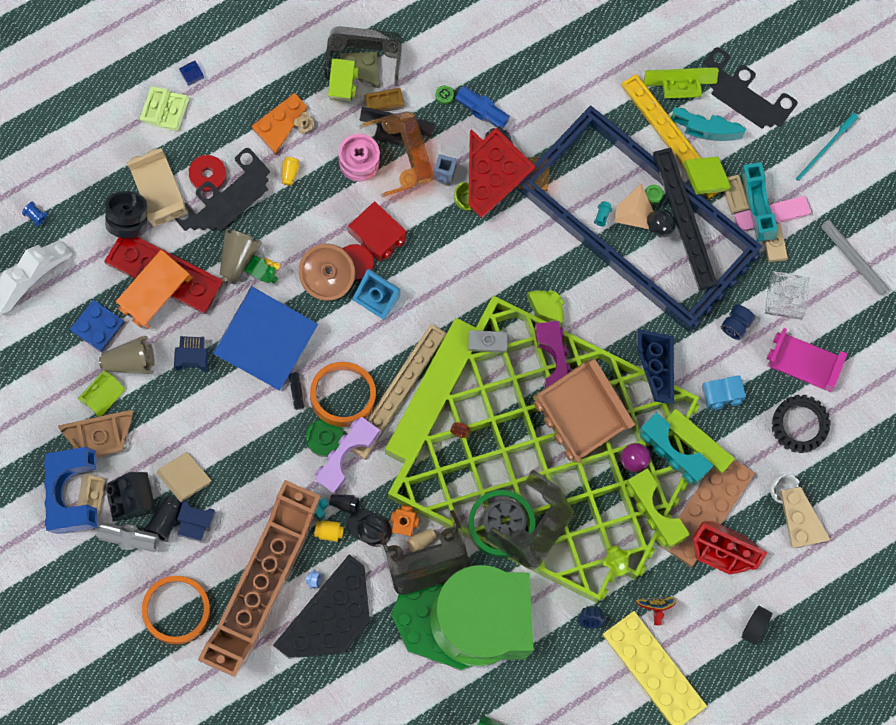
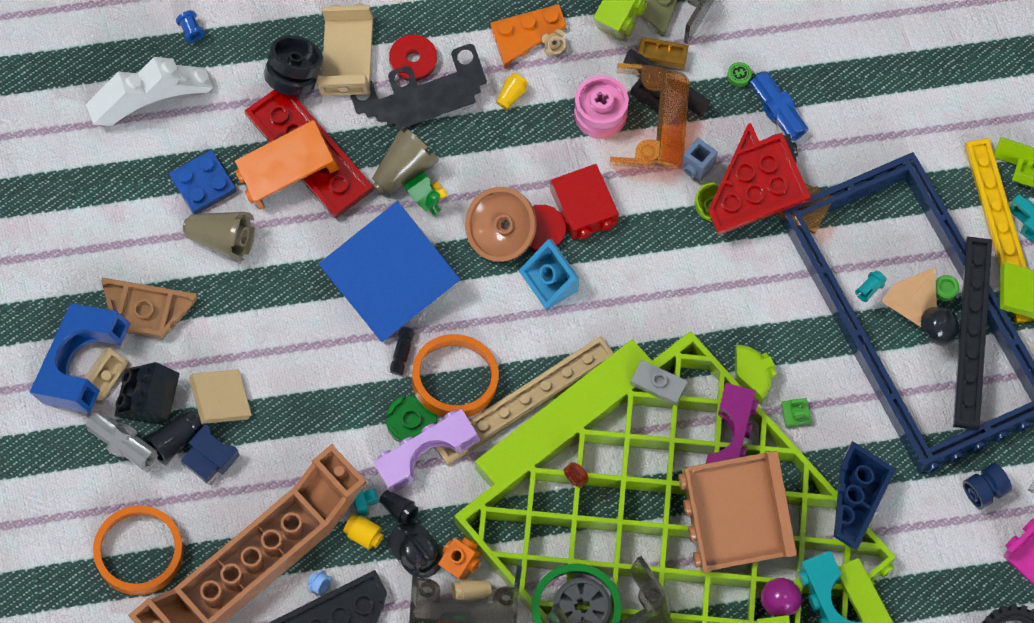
camera: 30 degrees right, 5 degrees down
(101, 393) = (171, 262): lime panel -> none
(191, 354) = (296, 257): dark blue piece -> none
(587, 323) = (796, 412): none -> bright green tile
(723, 392) = (932, 565): dark azure brick -> none

